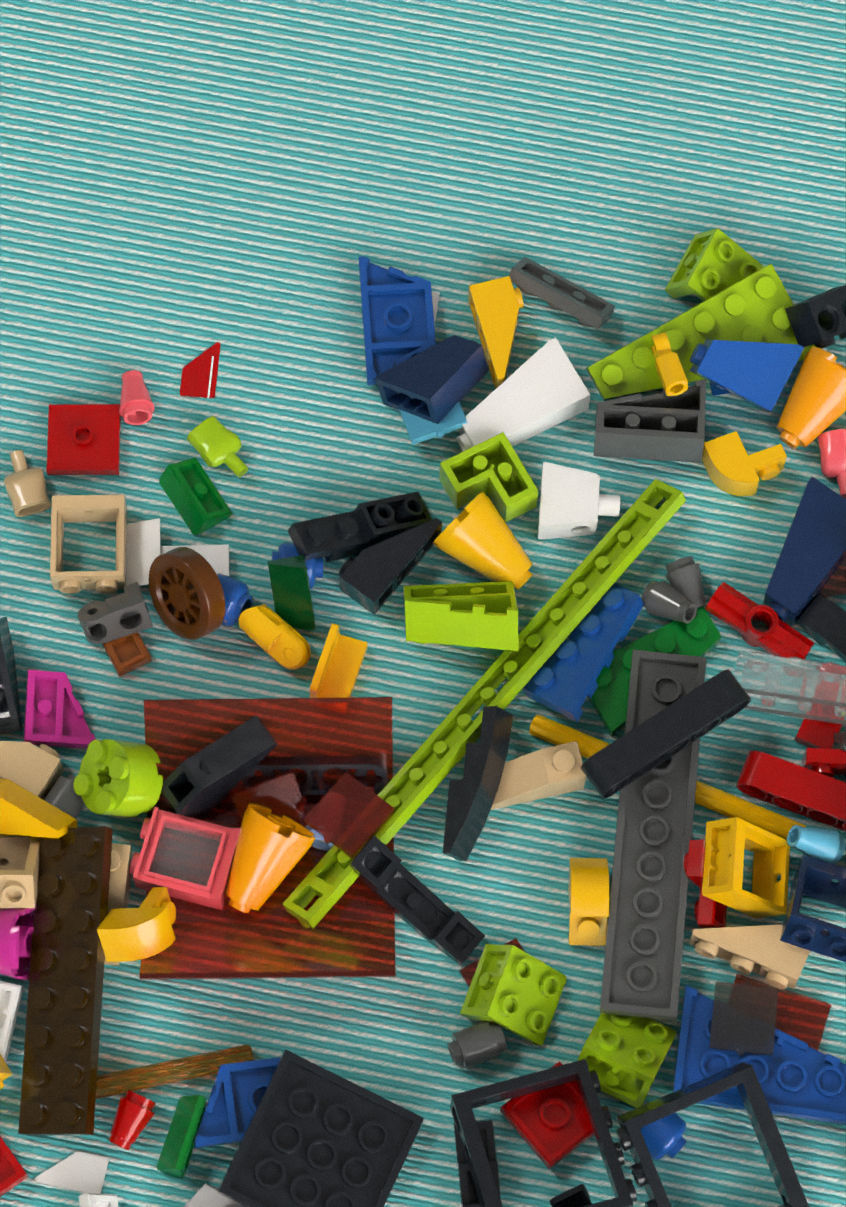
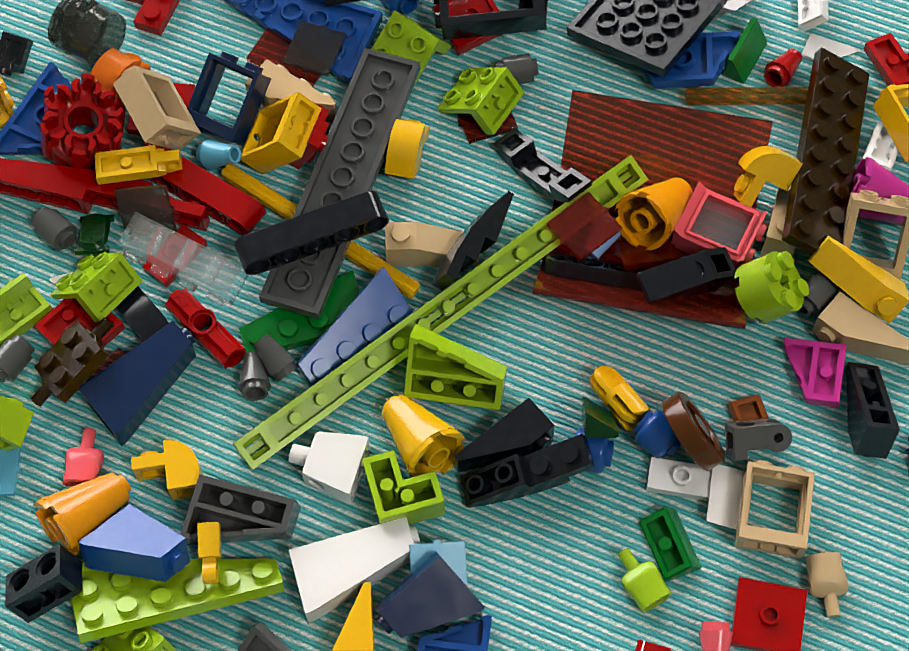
camera: 165 degrees left, 5 degrees down
(338, 666) = (569, 362): yellow panel -> none

